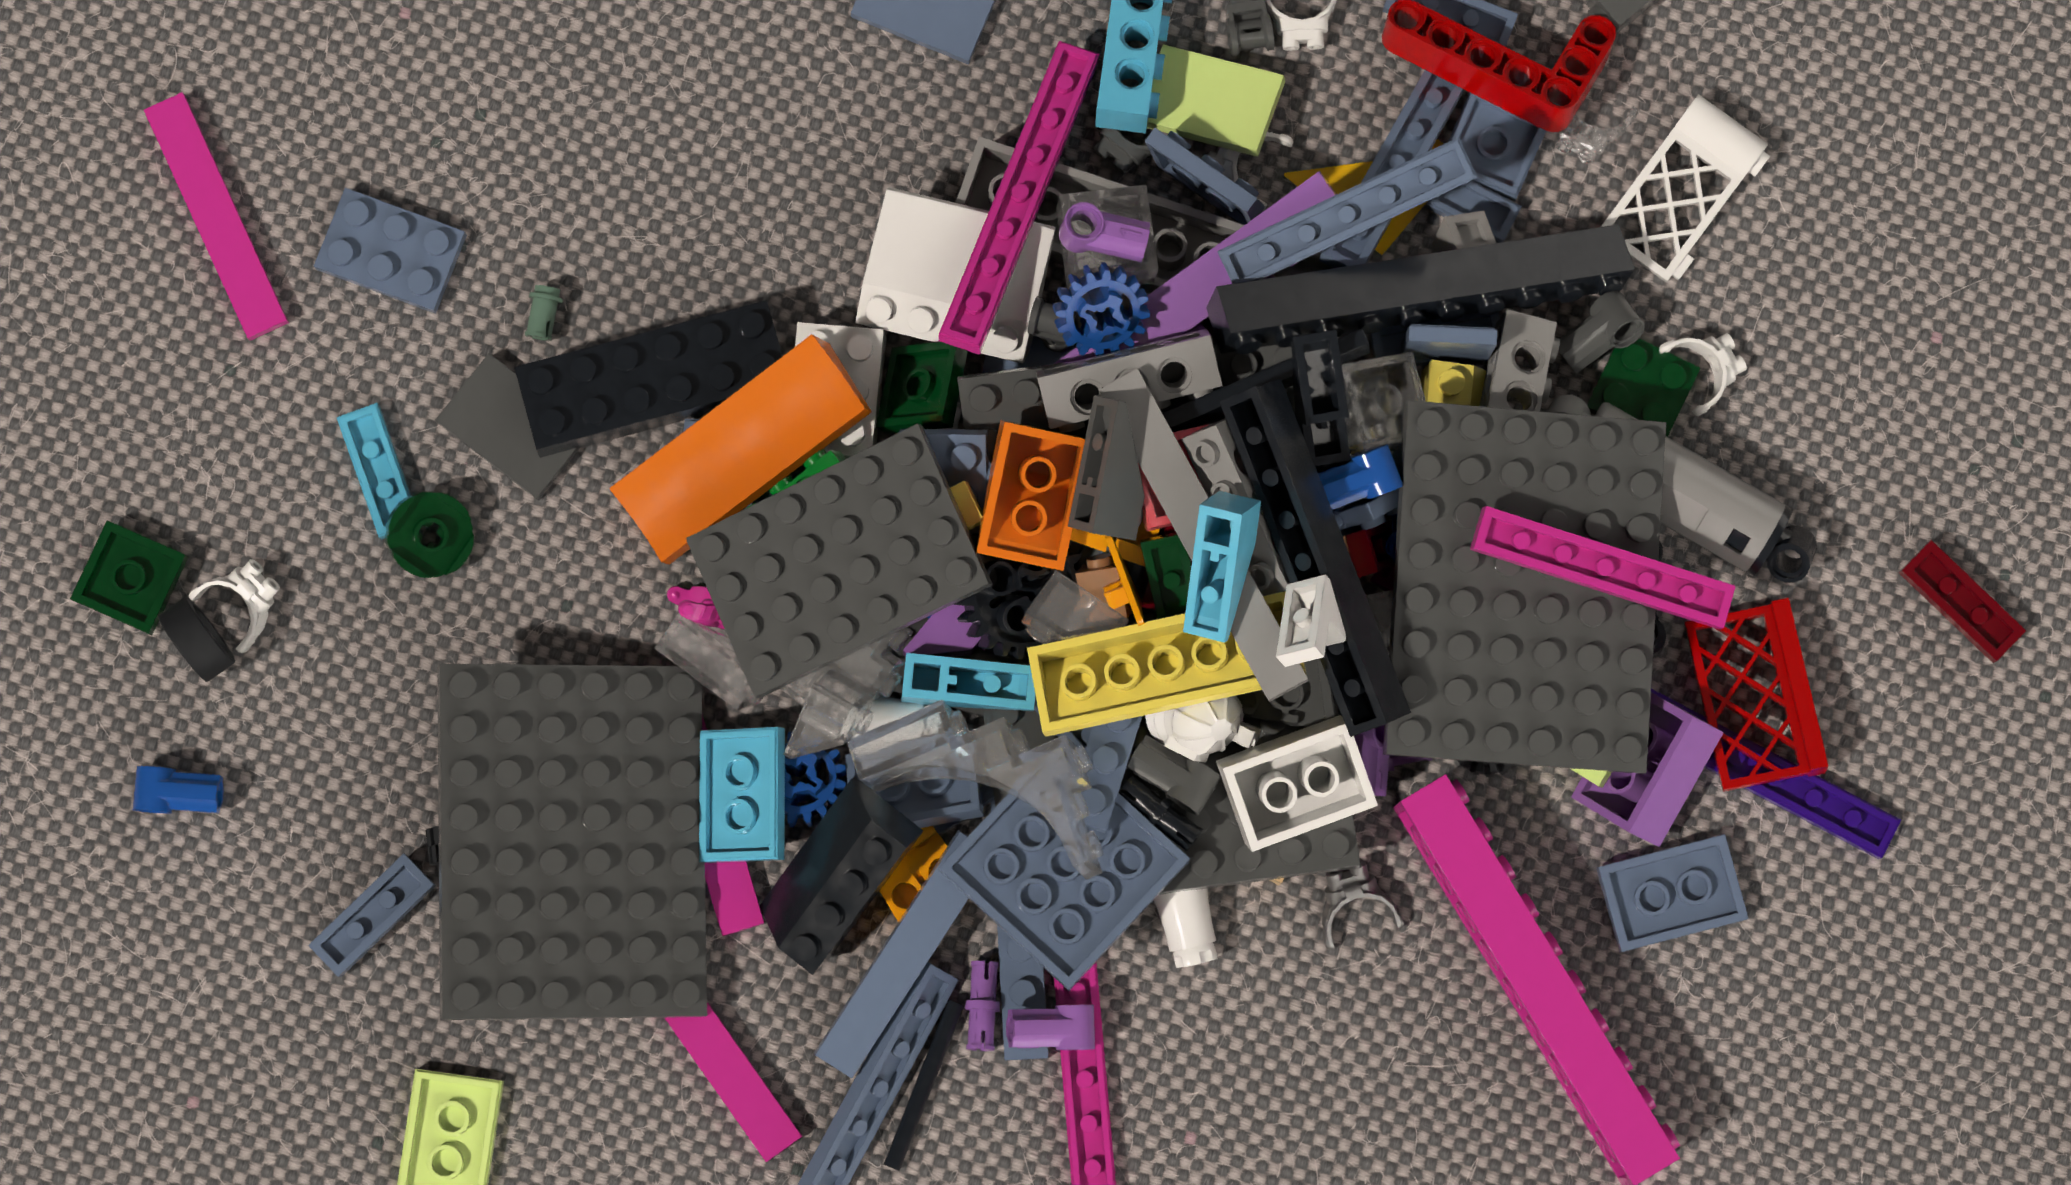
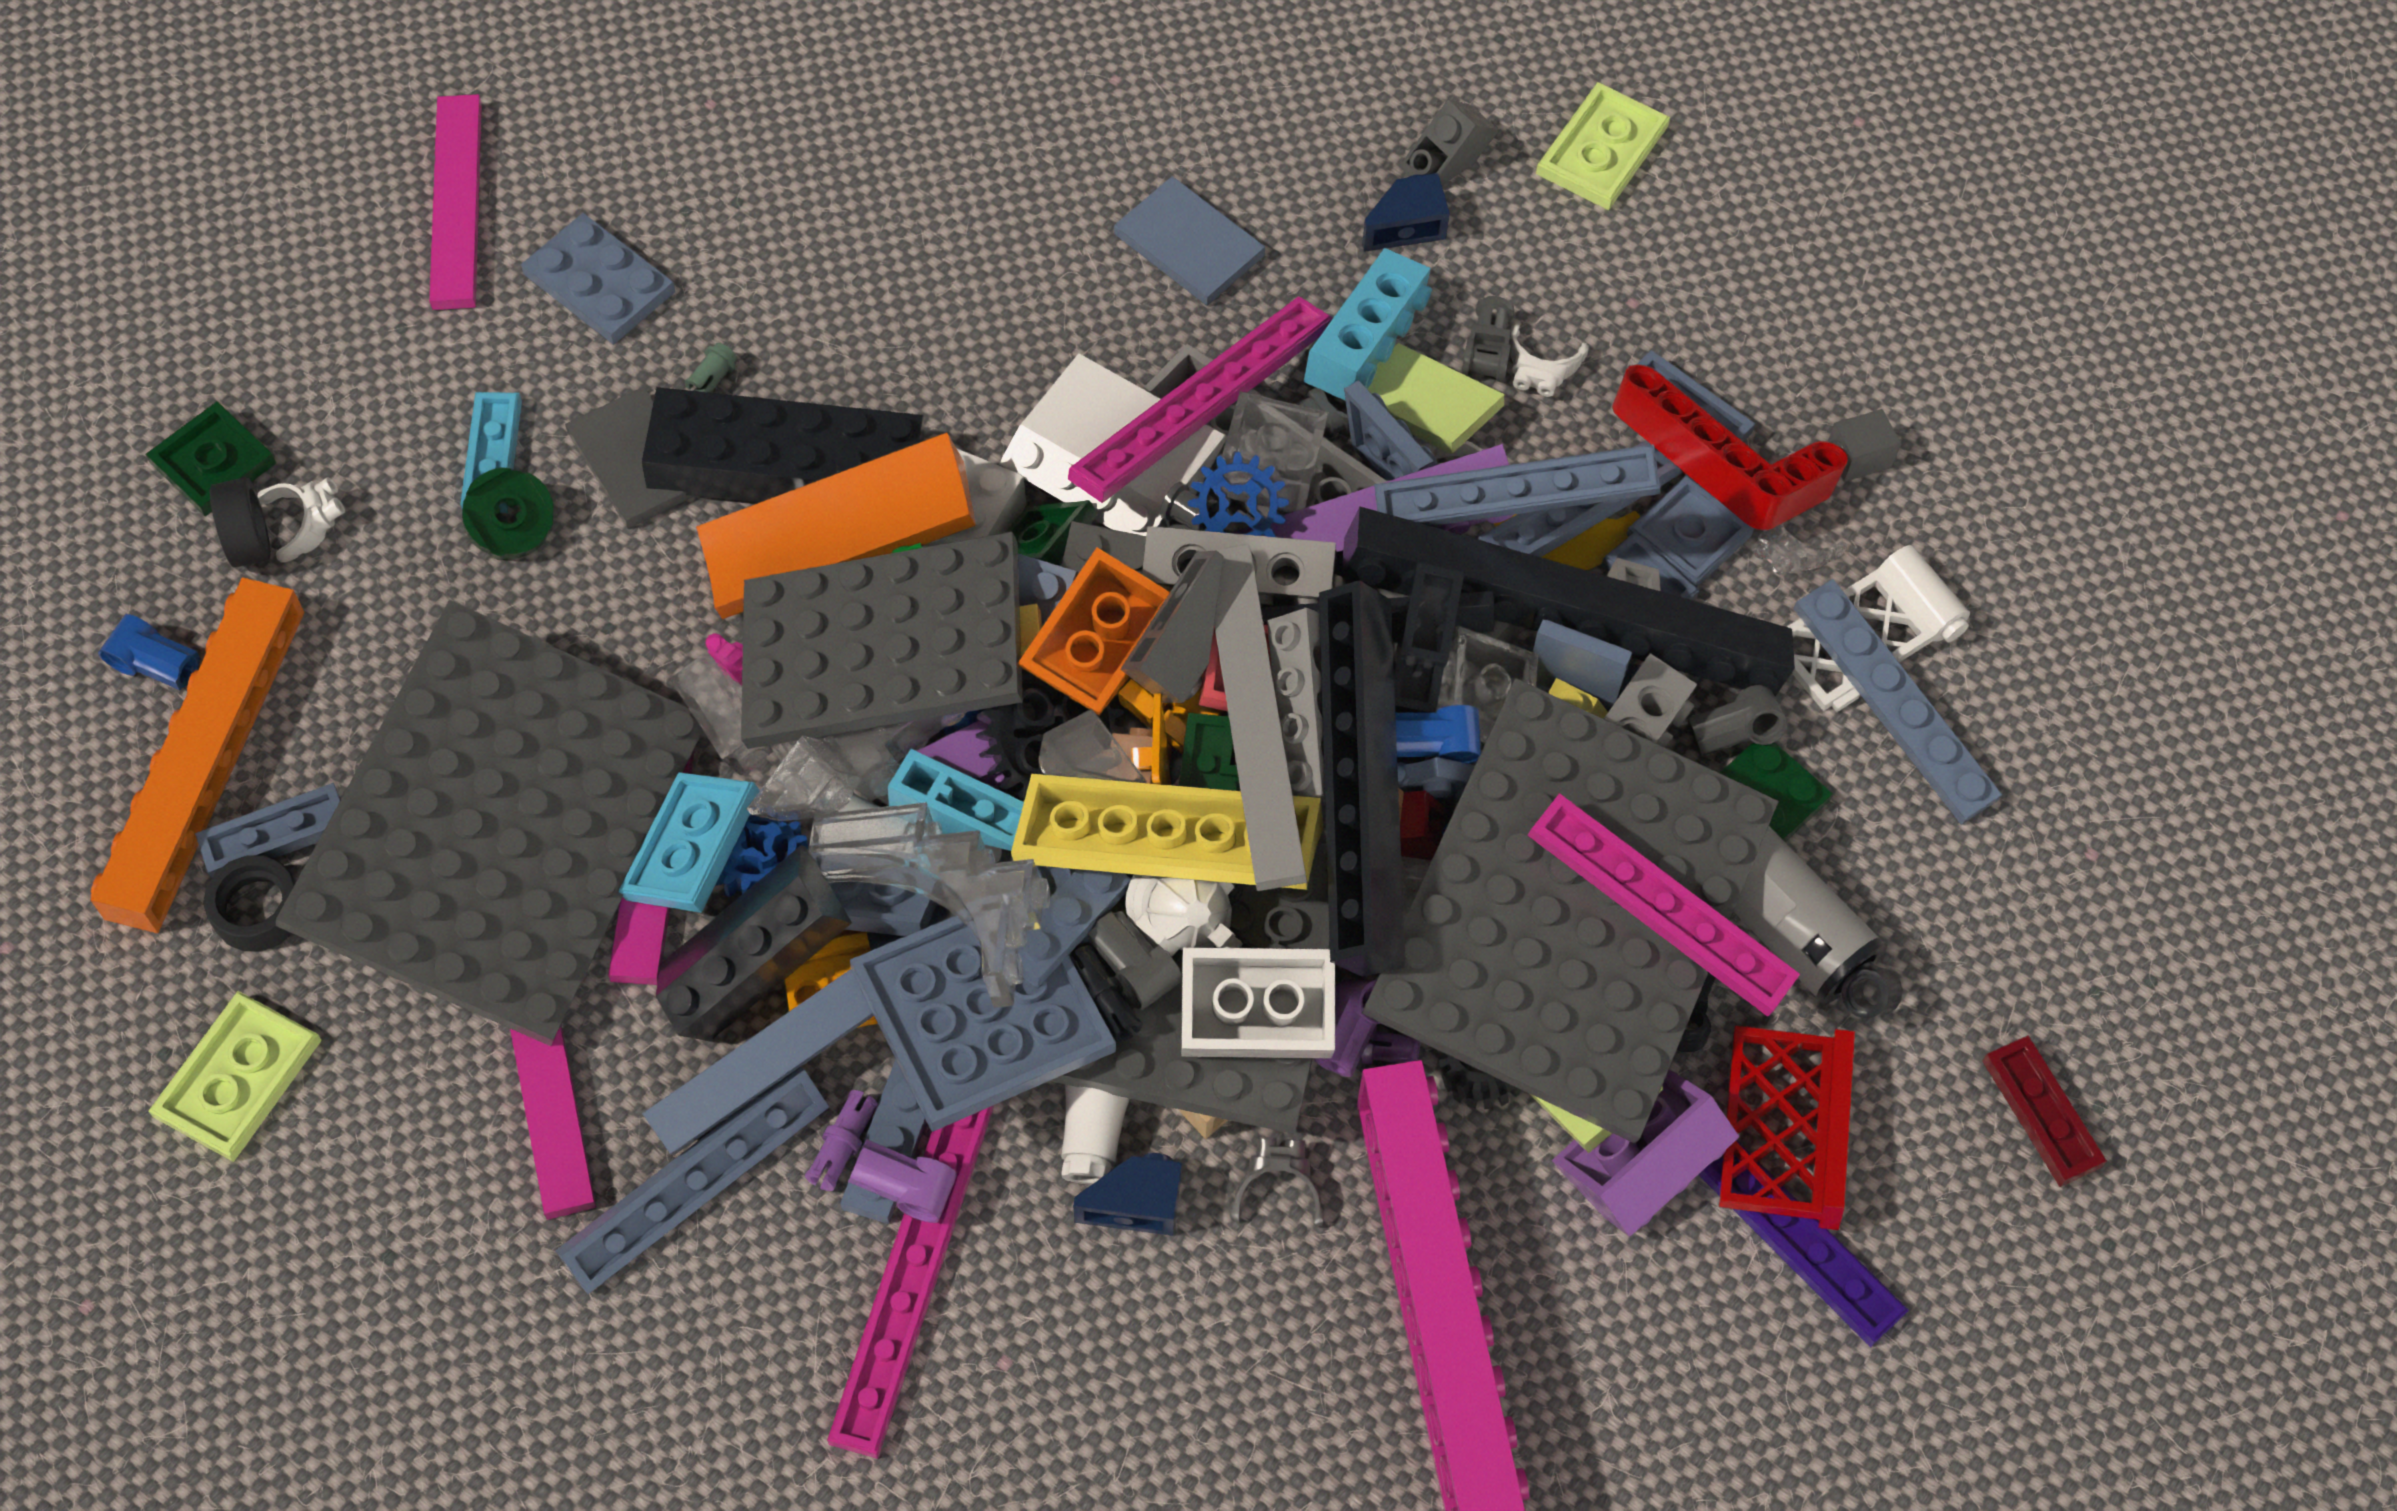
camera: 20 degrees right, 20 degrees down
(270, 867) = (197, 756): none -> orange brick
(357, 975) = (230, 880): none -> black tyre
(923, 1085) = (744, 1201): black bar -> none
(1109, 235) = (1255, 421): medium lavender piece -> none
(1220, 563) = (1257, 730): medium azure slope -> none
(1245, 961) = (1134, 1196): none -> dark blue slope
(1309, 621) = (1329, 822): white slope -> none
(1672, 893) = (1627, 1294): sand blue plate -> none
(1719, 356) = (1854, 787): white helmet -> none
(1729, 256) = (1897, 701): none -> sand blue plate

